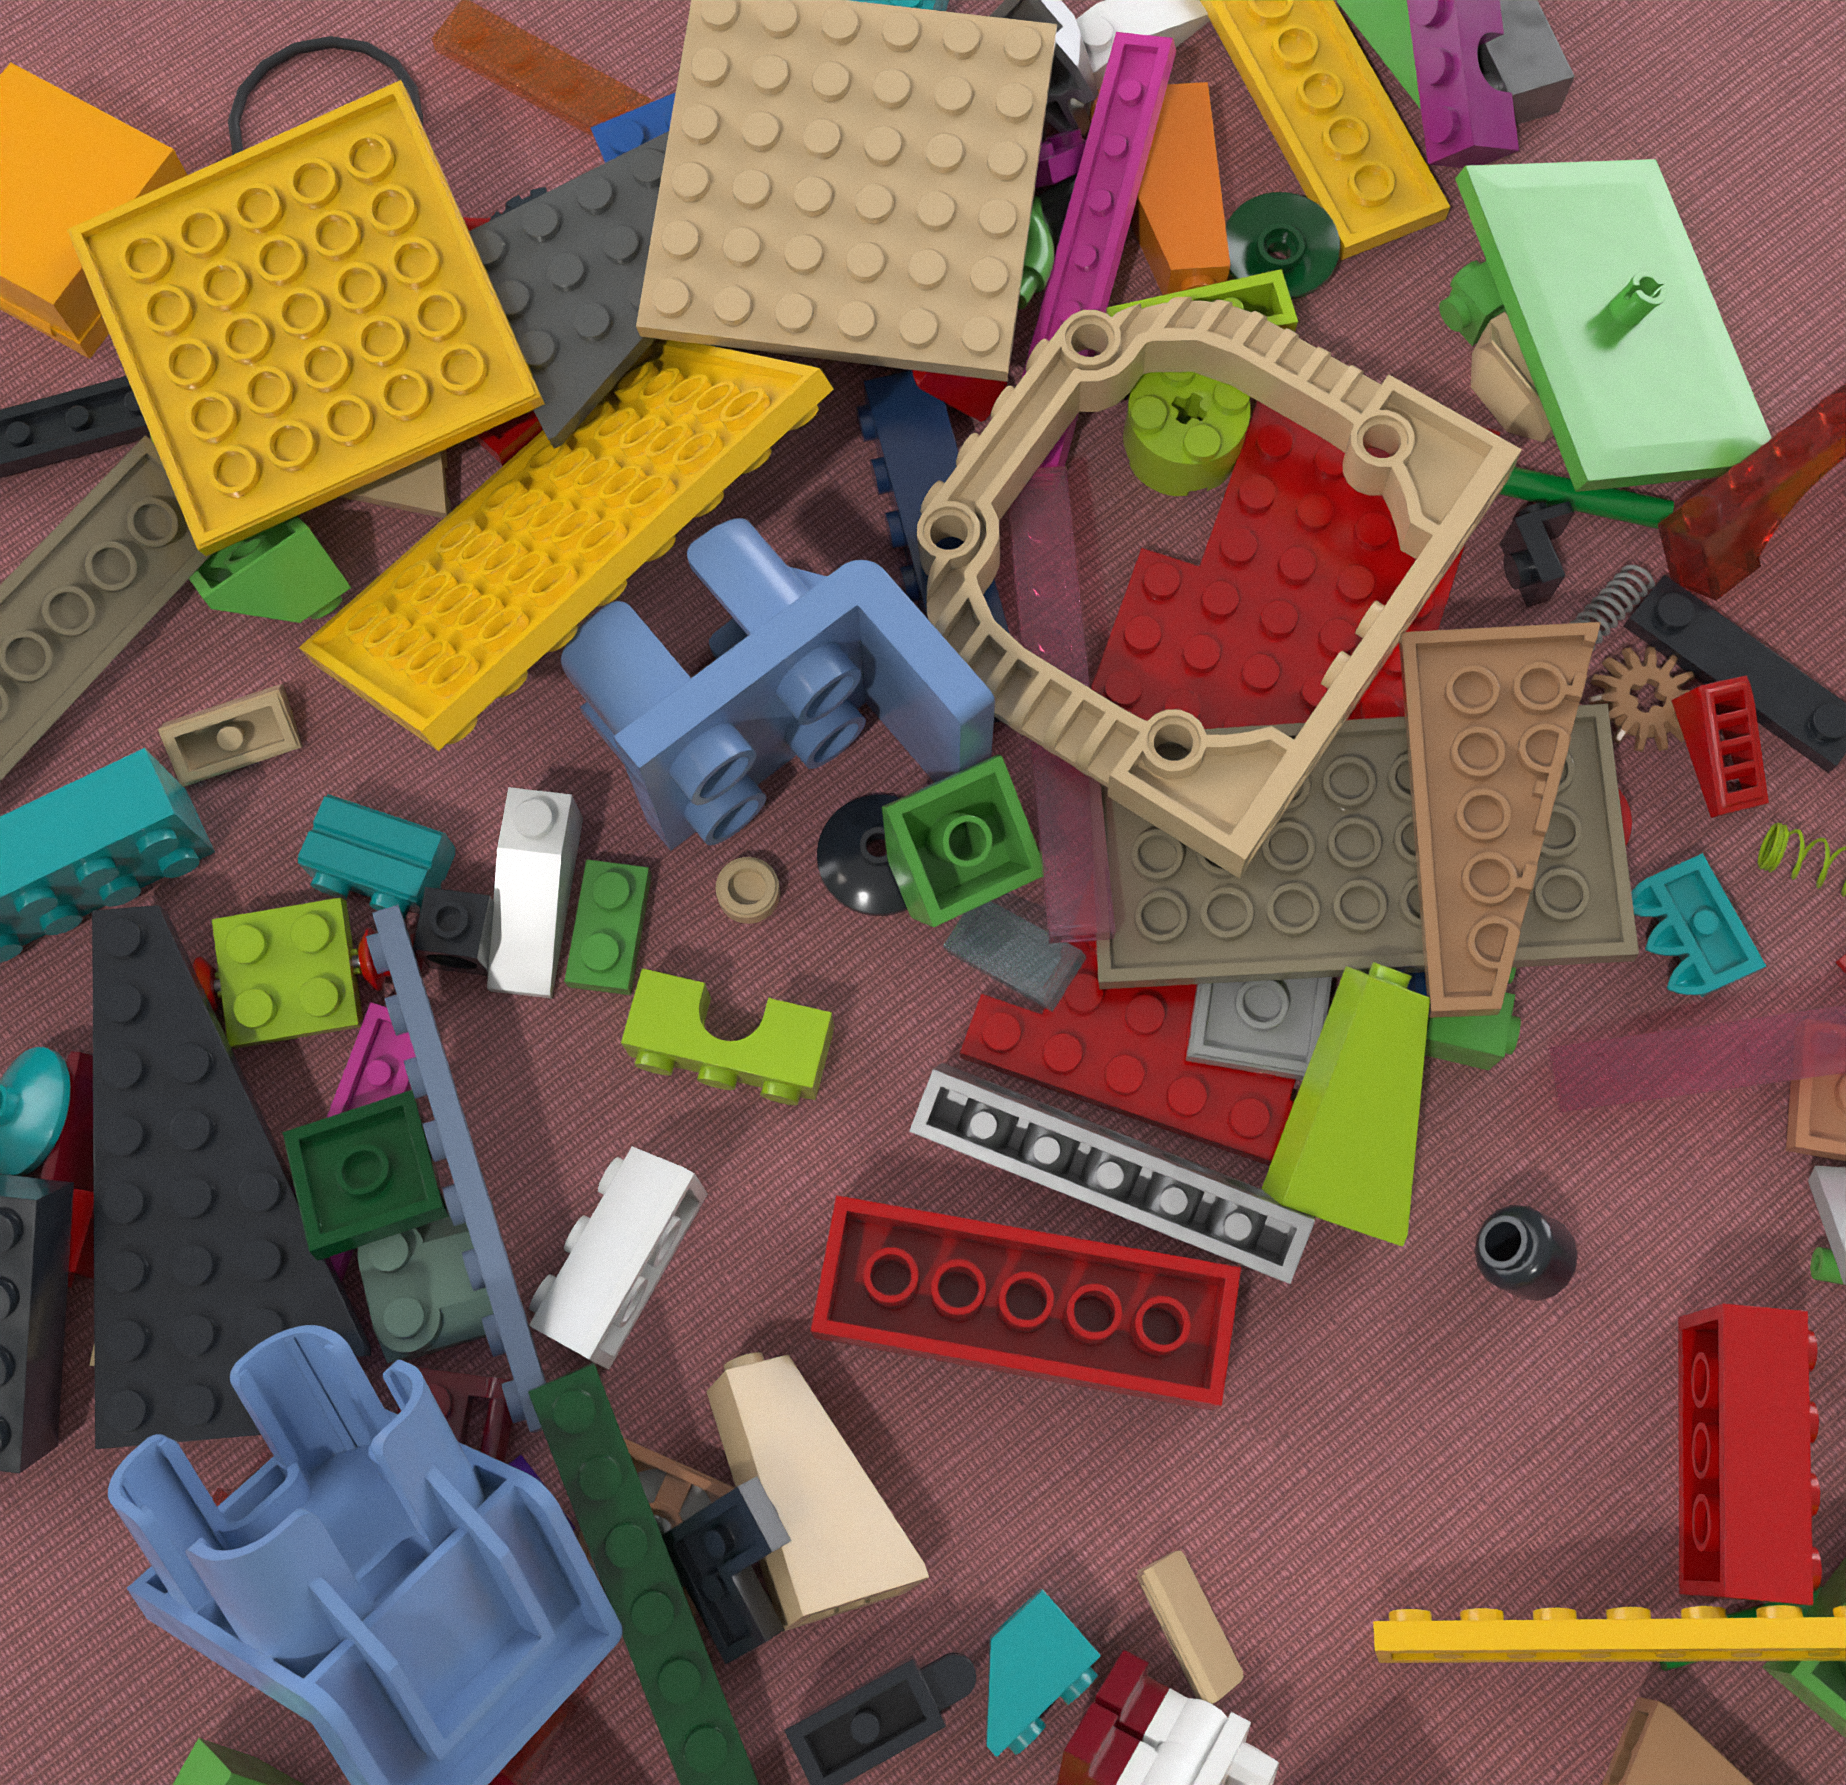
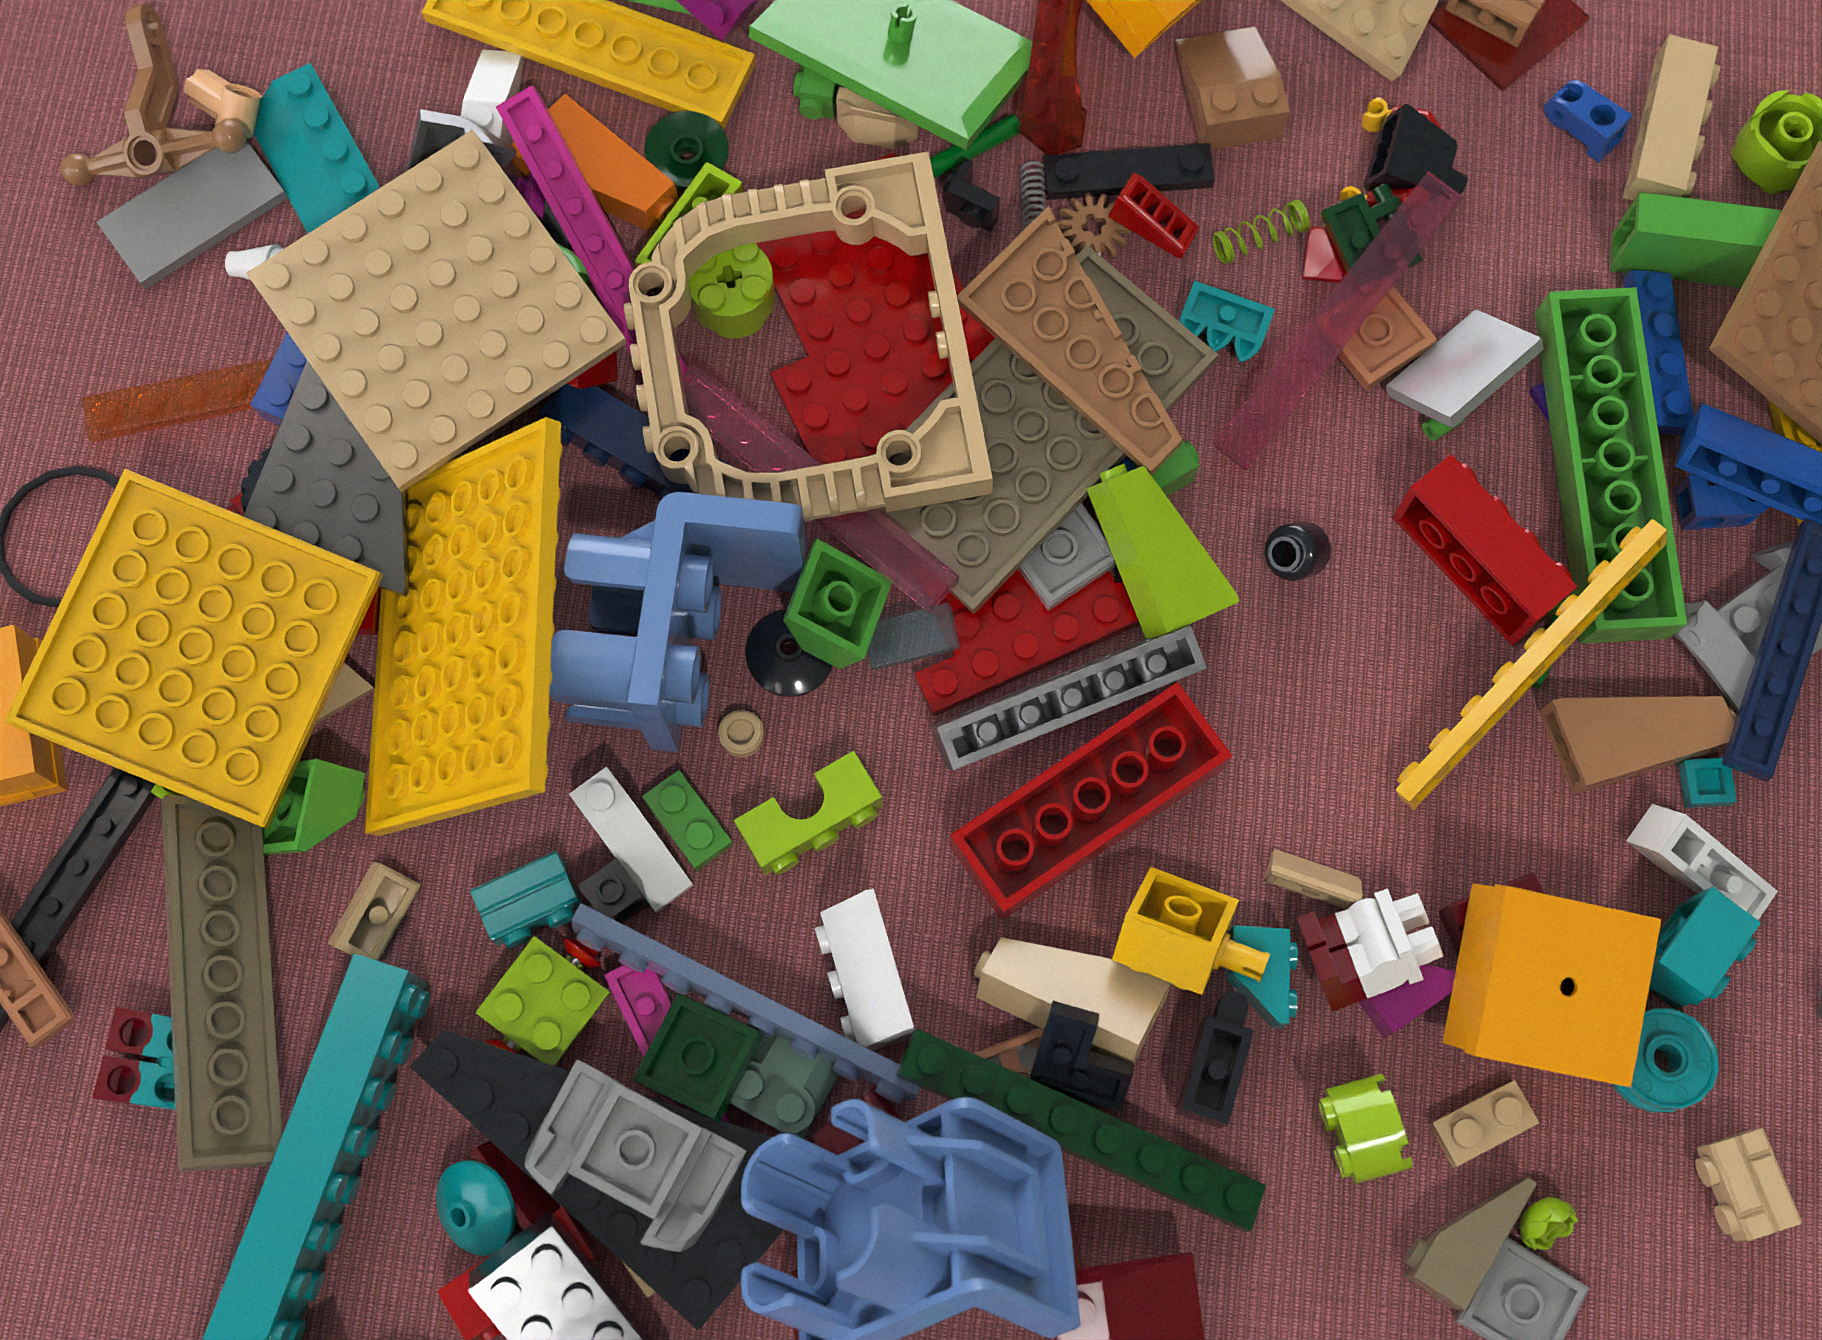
camera: 45 degrees left, 0 degrees up
(196, 1214) = (635, 1155): none -> light grey piece
(976, 1543) = (1182, 934): none -> yellow brick

